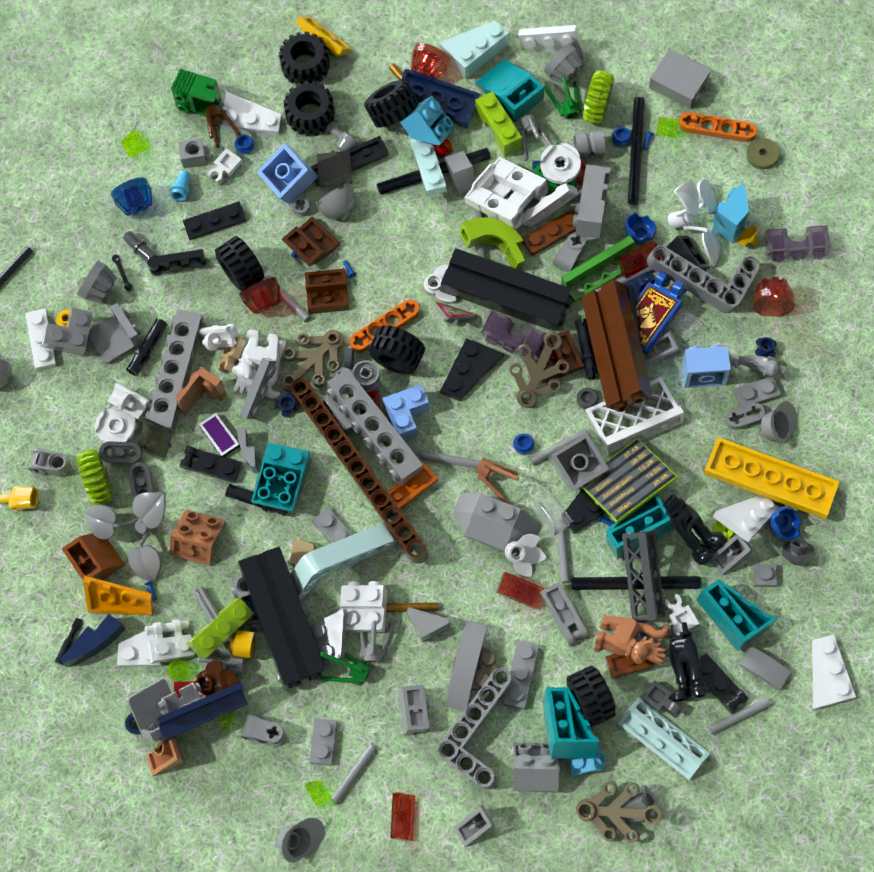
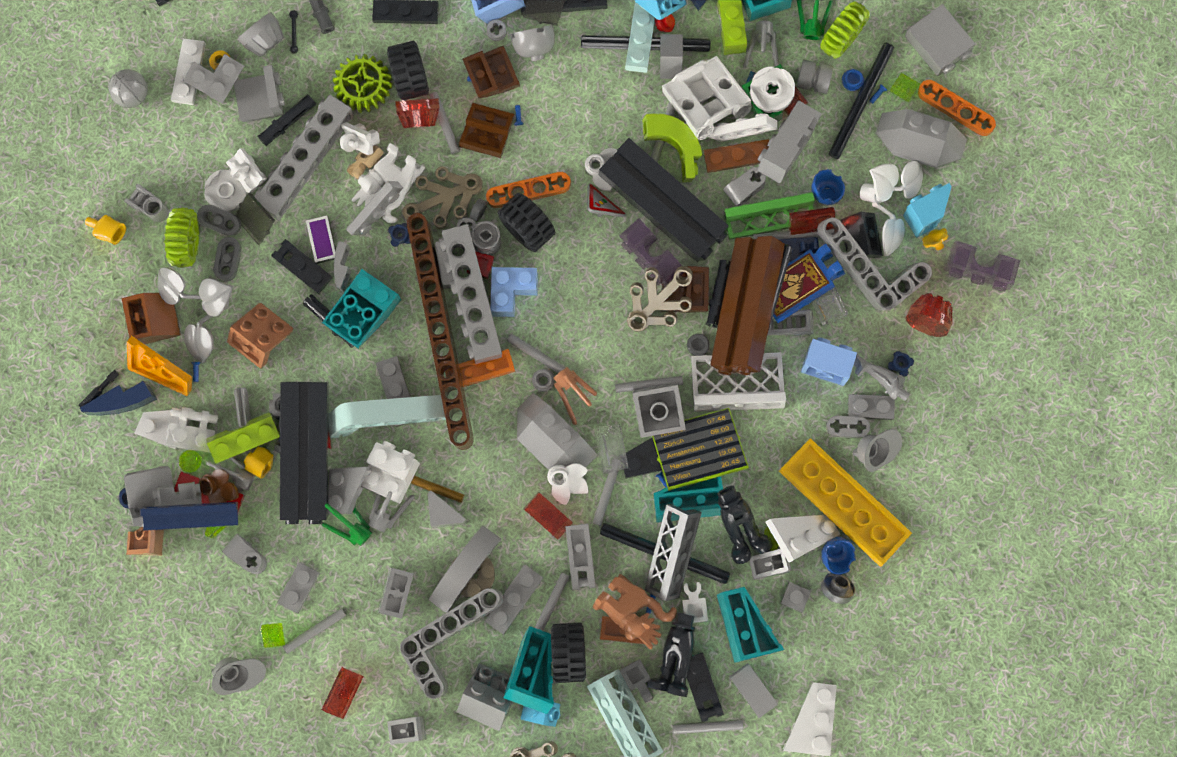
camera: 25 degrees right, 10 degrees up
(176, 261) = (350, 42): black plate -> none
(198, 383) = (316, 182): nougat bracket -> none
(218, 286) = (379, 86): none -> lime gear
(299, 549) = (353, 391): tan slope -> none
(466, 472) = (543, 373): none -> light grey plate
(469, 367) = (596, 265): black wing -> none
(523, 443) = (615, 367): blue plate -> none
(555, 660) = (552, 601): none -> light grey bar
(699, 159) = (921, 137): none -> light grey wedge
(762, 161) = (986, 163): olive piece -> none

